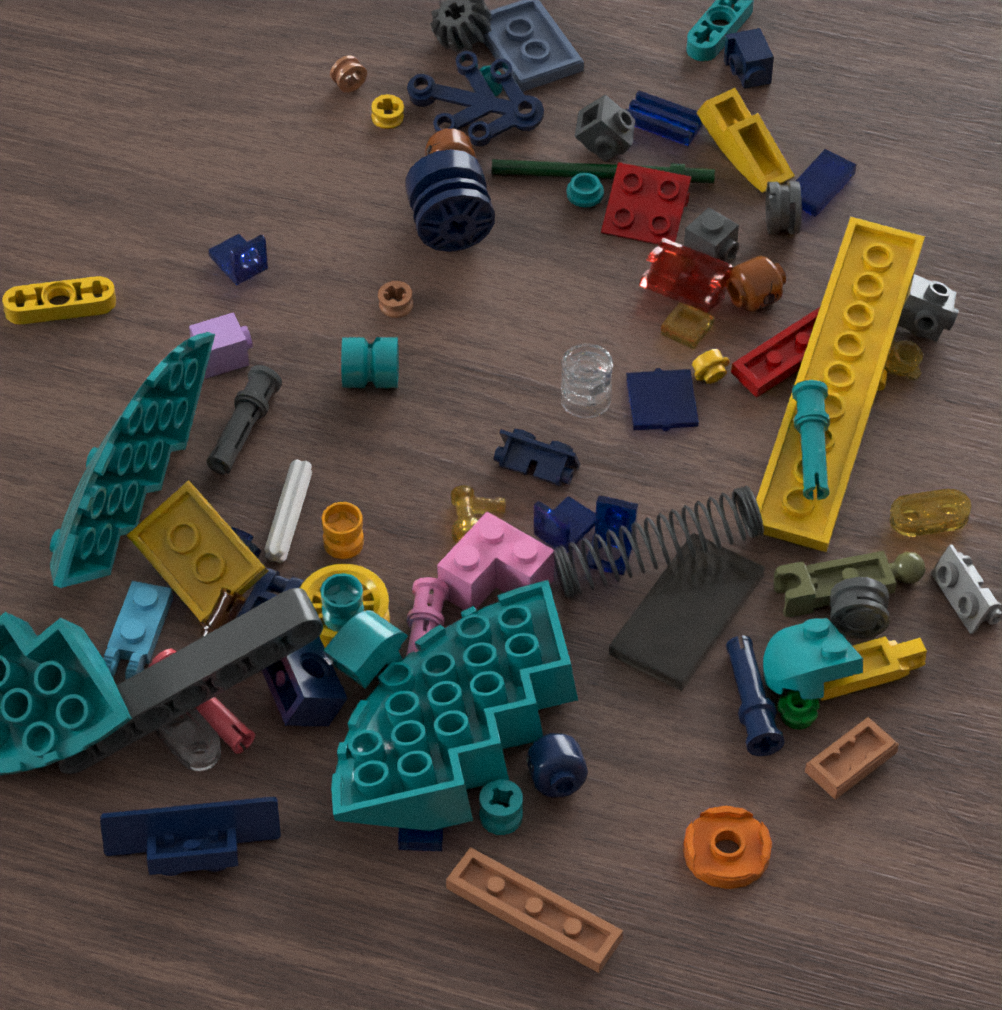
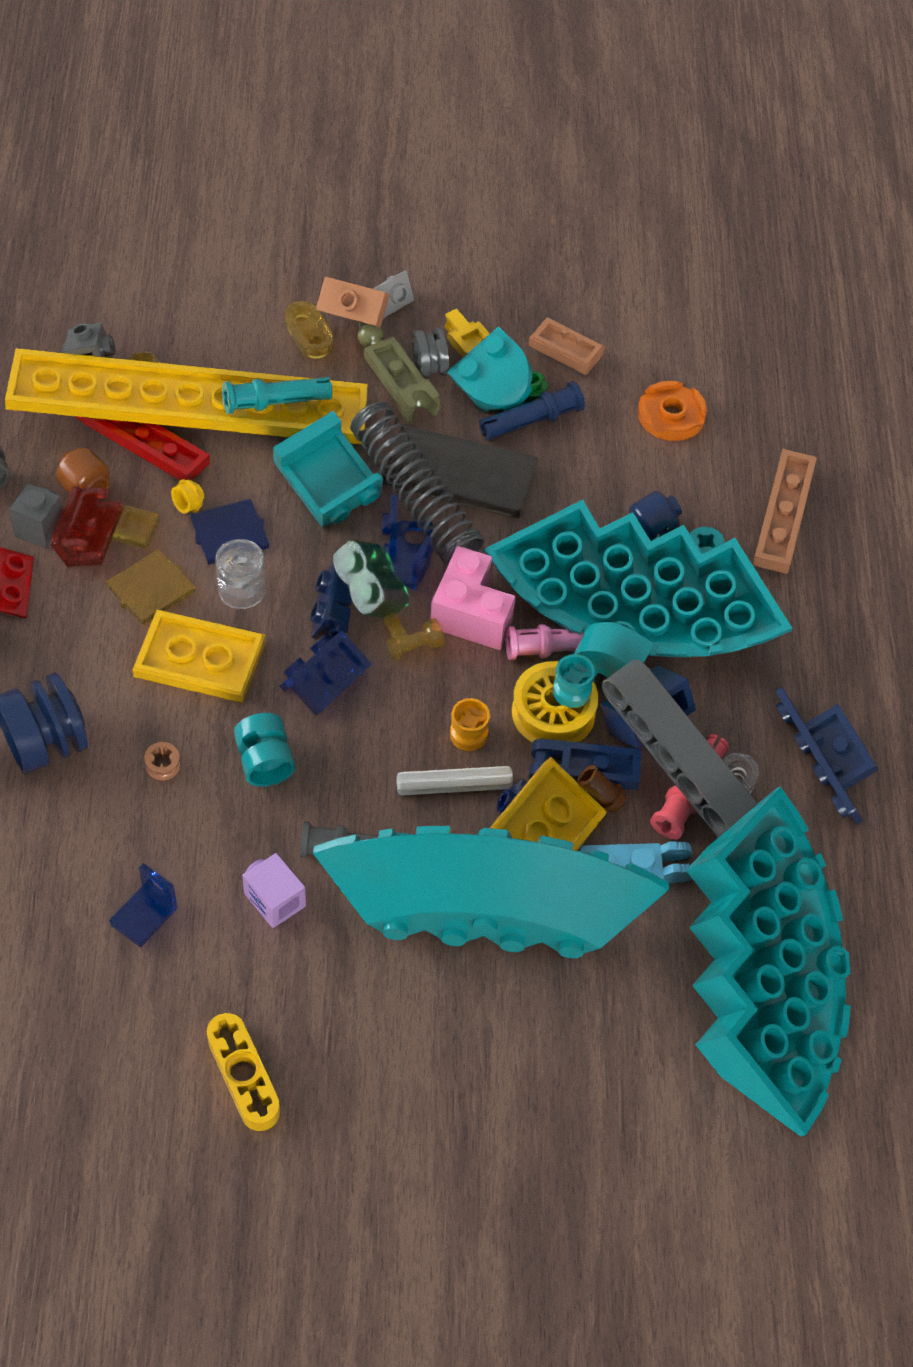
camera: 110 degrees left, 5 degrees up
(447, 431) = (327, 672): none -> clear blue bracket
(509, 347) = (199, 656): none -> yellow tile
(543, 477) = (370, 578): none -> clear green brick
(610, 324) = (150, 586): none -> clear yellow piece
(701, 472) = (326, 471): none -> teal panel
(942, 538) = (352, 302): none -> nougat plate

